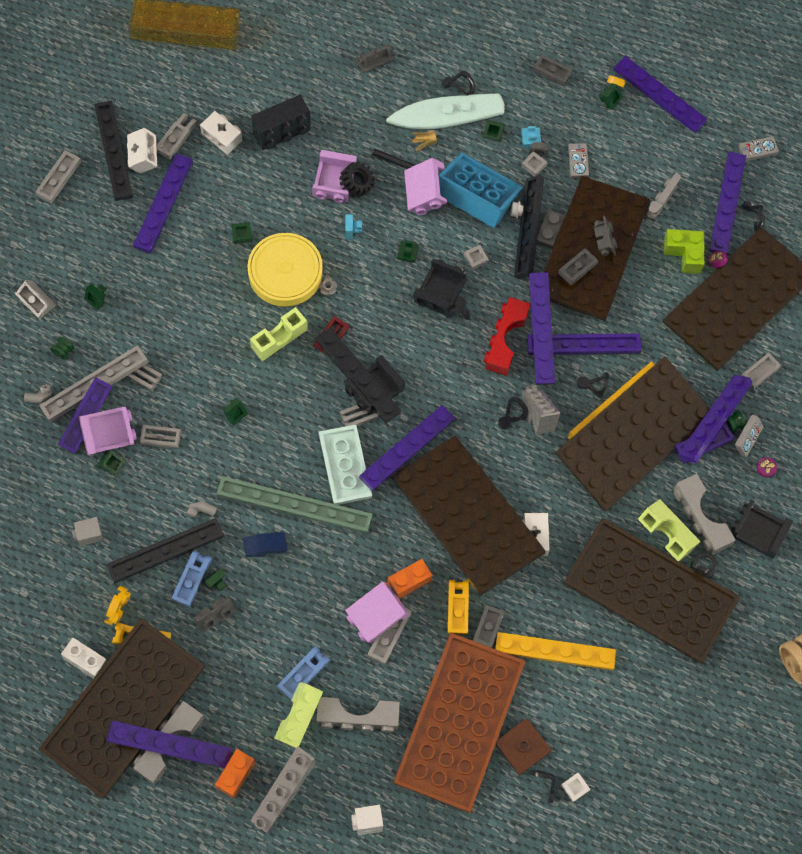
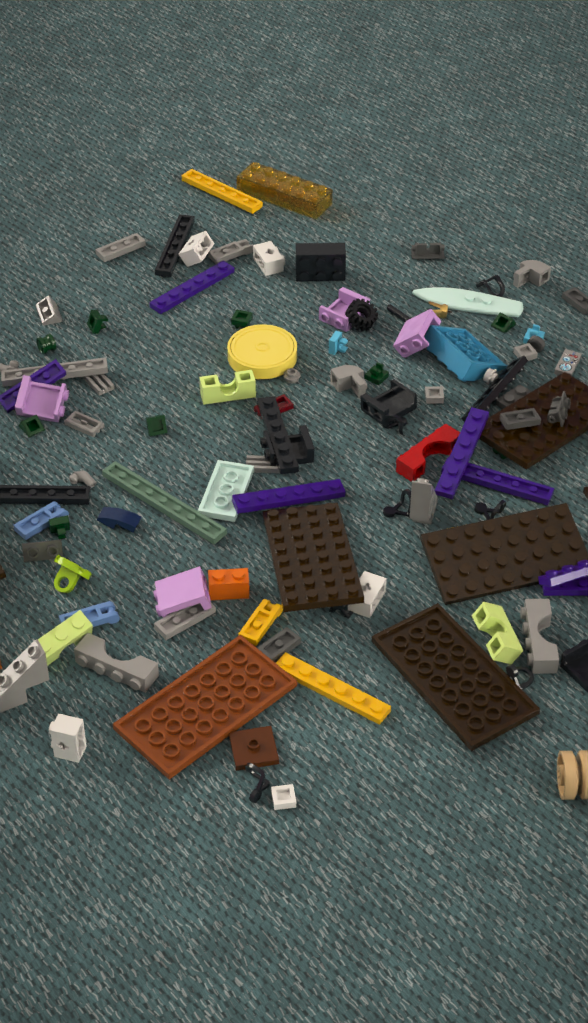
camera: 30 degrees right, 25 degrees down
(117, 48) = (222, 191): none -> yellow plate
(260, 629) = (71, 571): none -> lime tile
(387, 268) = (349, 377): none -> light grey brick
(493, 47) = (532, 271): none -> light grey brick

